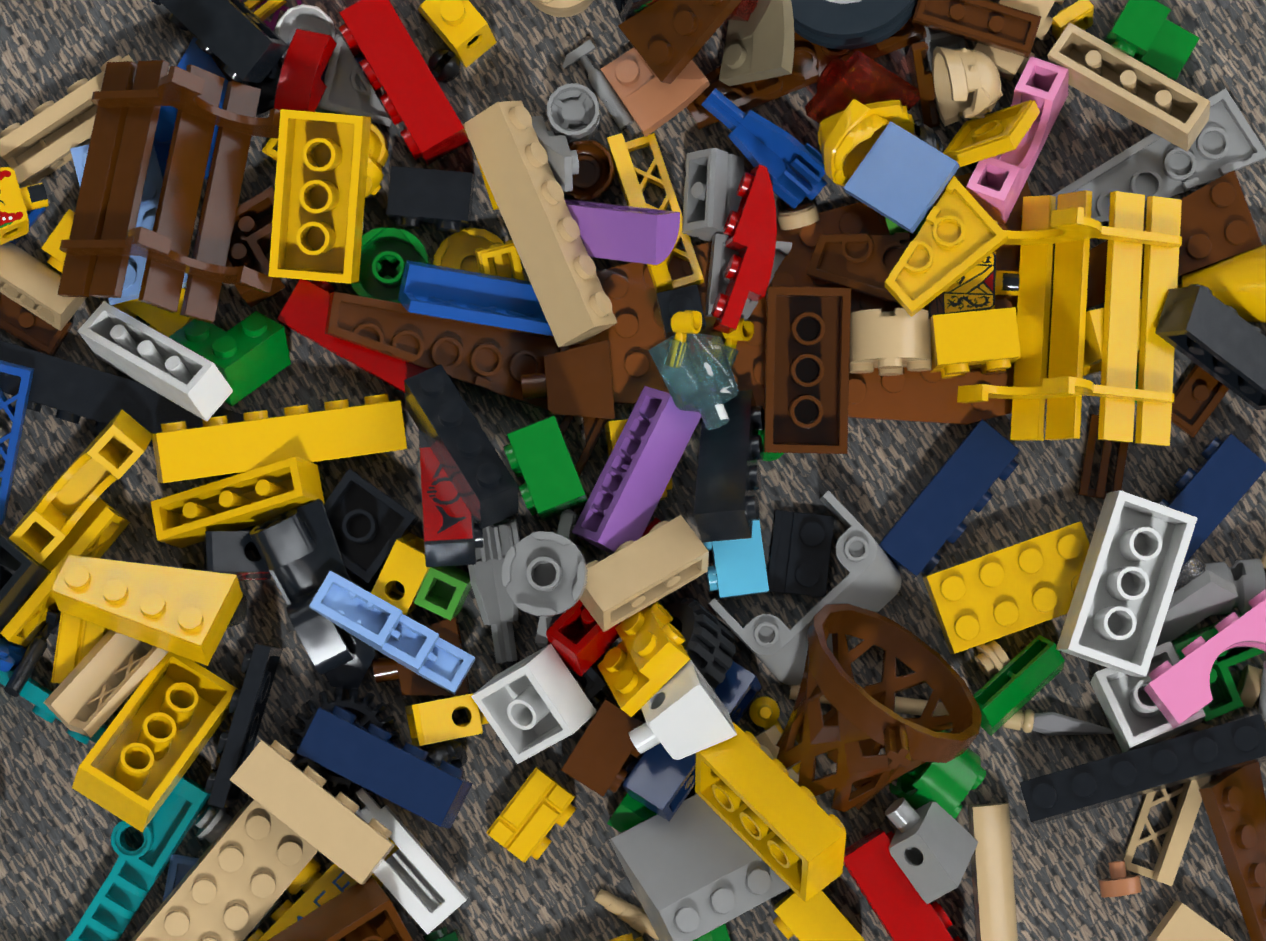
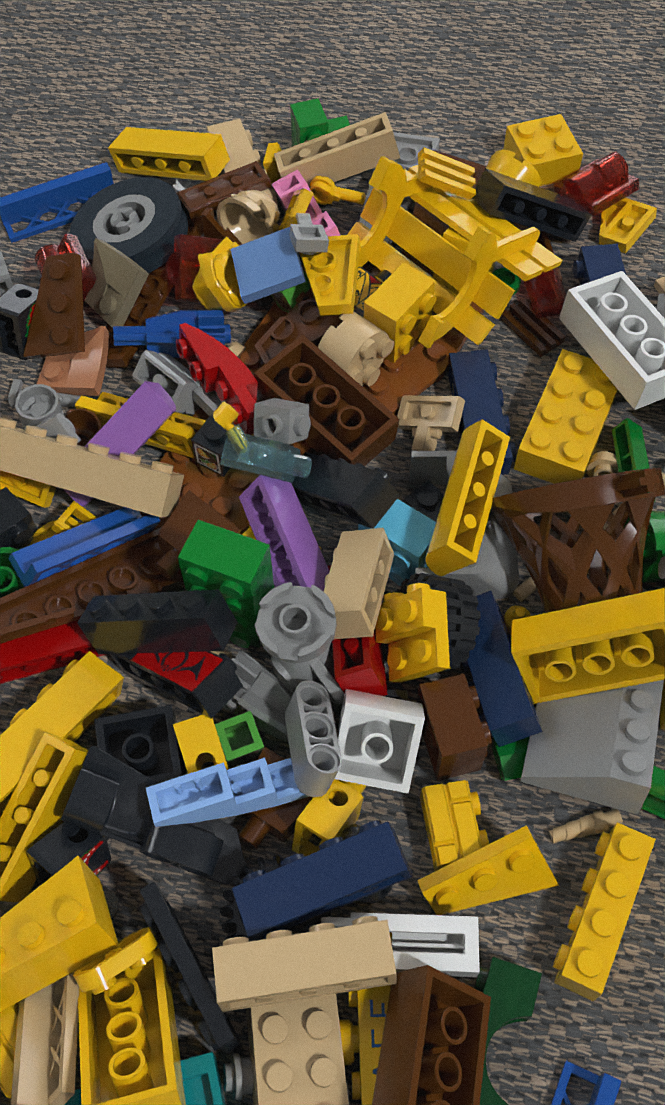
camera: 50 degrees left, 25 degrees down
(181, 673) = (132, 952): none -> yellow plate
(469, 661) = (312, 739): none -> light grey beam
(521, 878) = (489, 874): none -> yellow wing
(683, 716) = (480, 636): white torso -> none
(742, 358) = (281, 420): none -> light grey brick
(802, 596) = (467, 499): none -> yellow brick
(896, 462) = (429, 418): none -> tan hinge
(954, 194) = (308, 237): none -> light grey plate
(1079, 109) = (326, 192): none -> yellow plate
(1155, 459) = (546, 293): none -> clear red slope
(1179, 274) = (446, 170): none -> yellow tile

